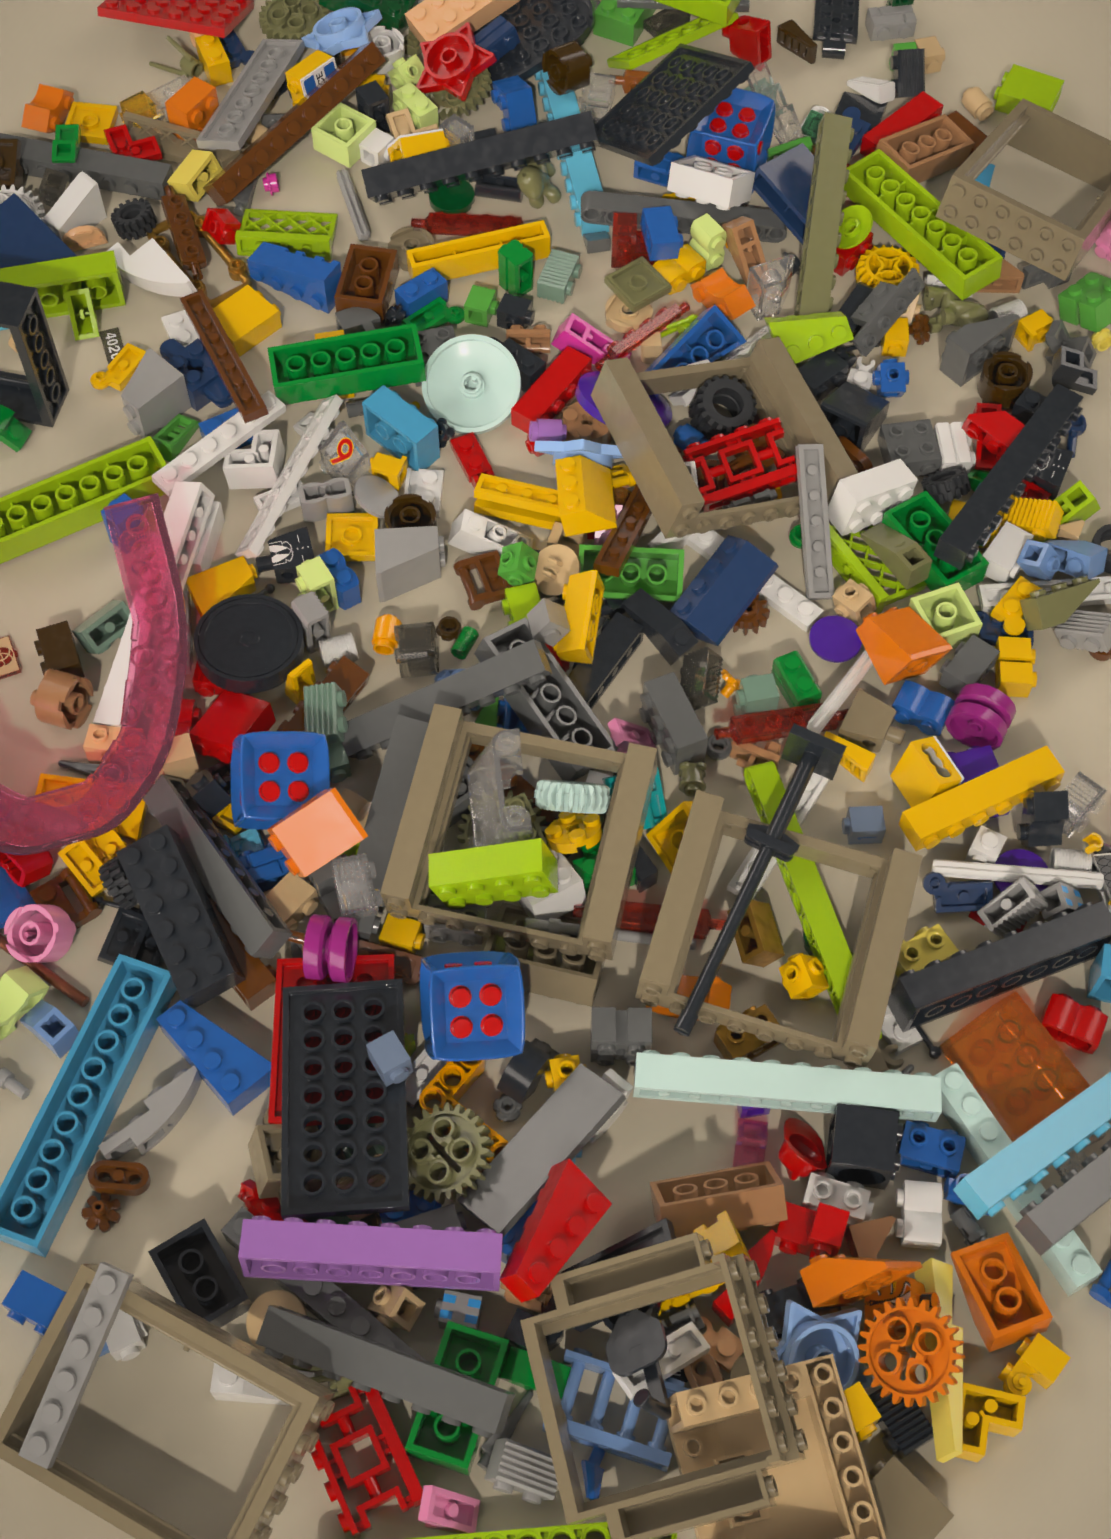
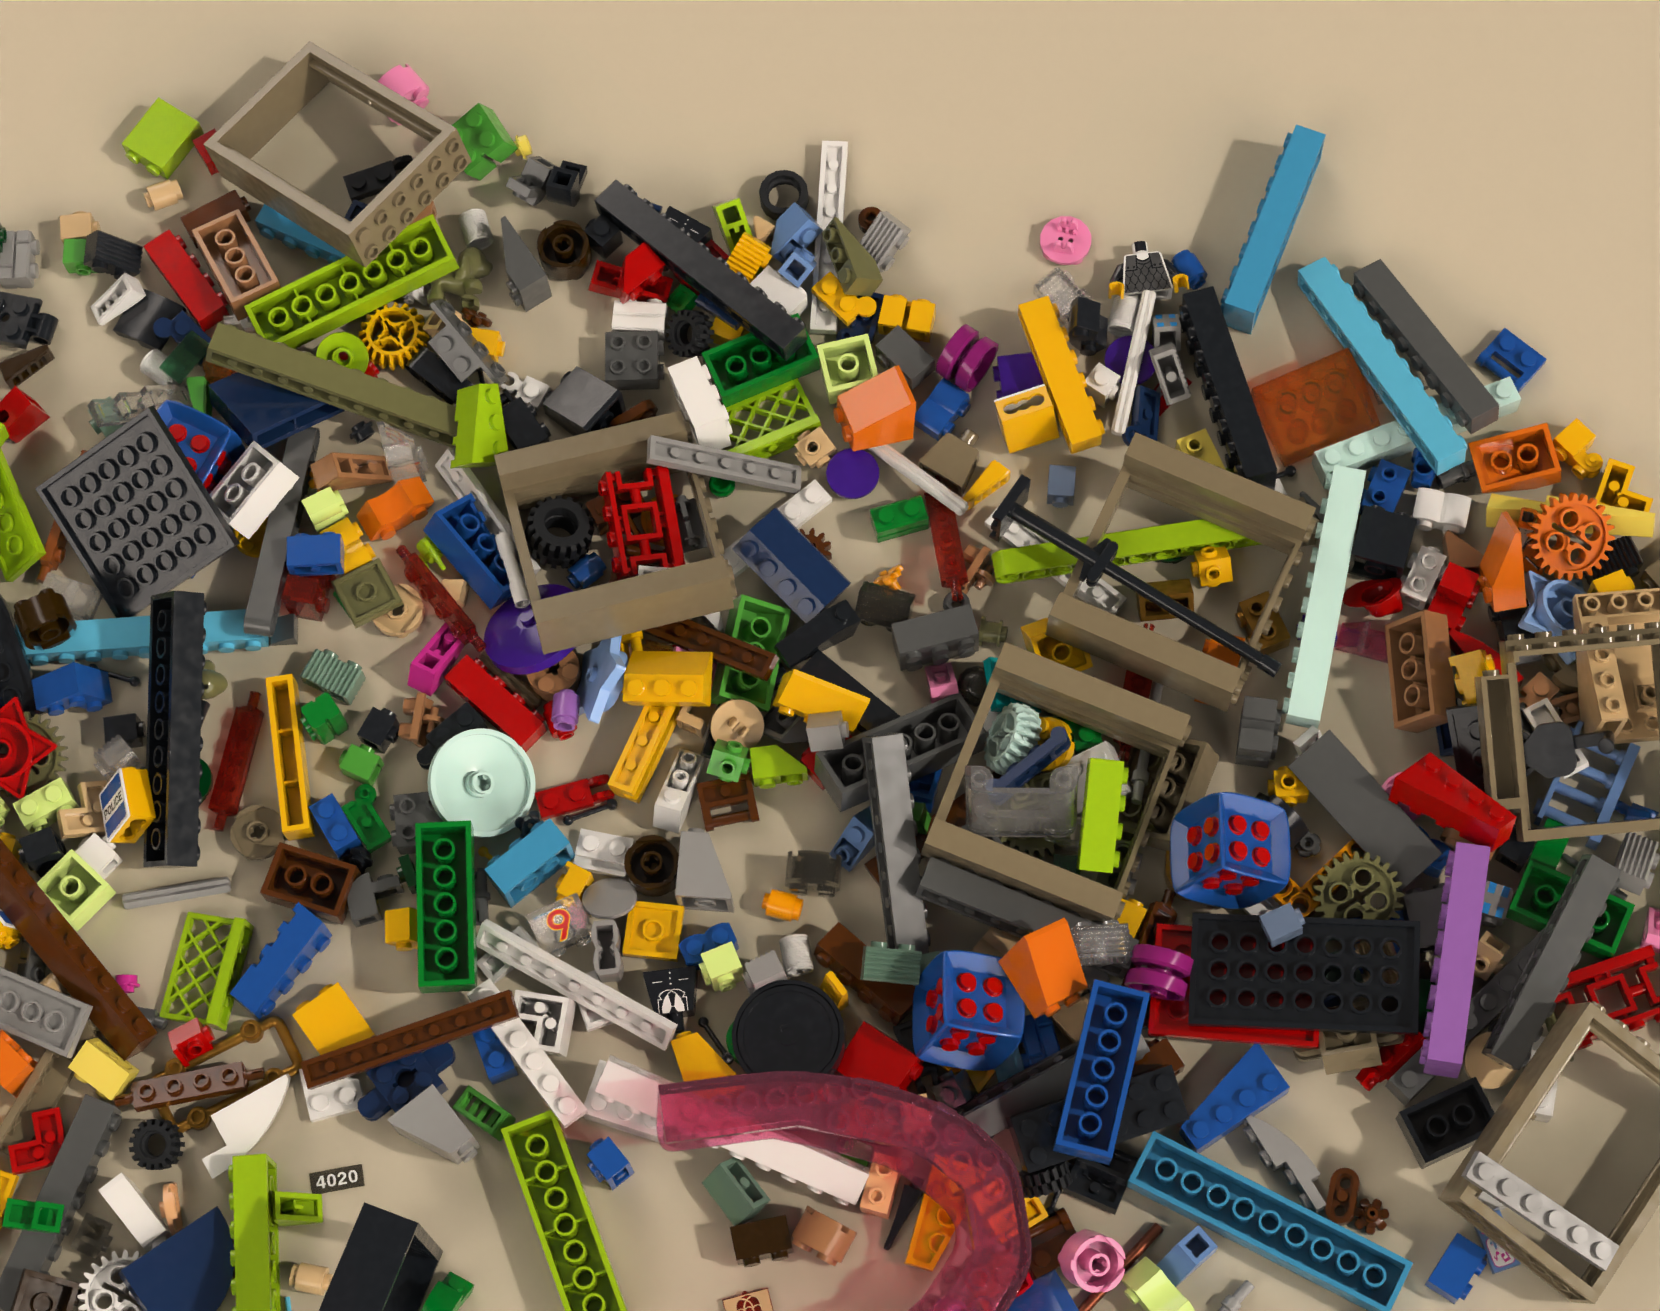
camera: 75 degrees left, 10 degrees up
(119, 370) = (380, 1168): yellow hinge -> none
(210, 892) = (1101, 1072): none -> blue brick
(448, 623) = (783, 836): dark brown plate -> none
(451, 462) = (611, 805): none -> black hinge
(463, 648) = (802, 829): green piece -> none
(537, 803) = (1036, 760): none -> dark blue plate
(756, 694) = (919, 557): sand green brick -> none
(890, 378) = (542, 360): blue brick -> none
(899, 554) = (766, 395): olive slope -> none
(1033, 329) = (498, 206): yellow brick -> none
(1074, 1023) = (1279, 350): red brick -> none

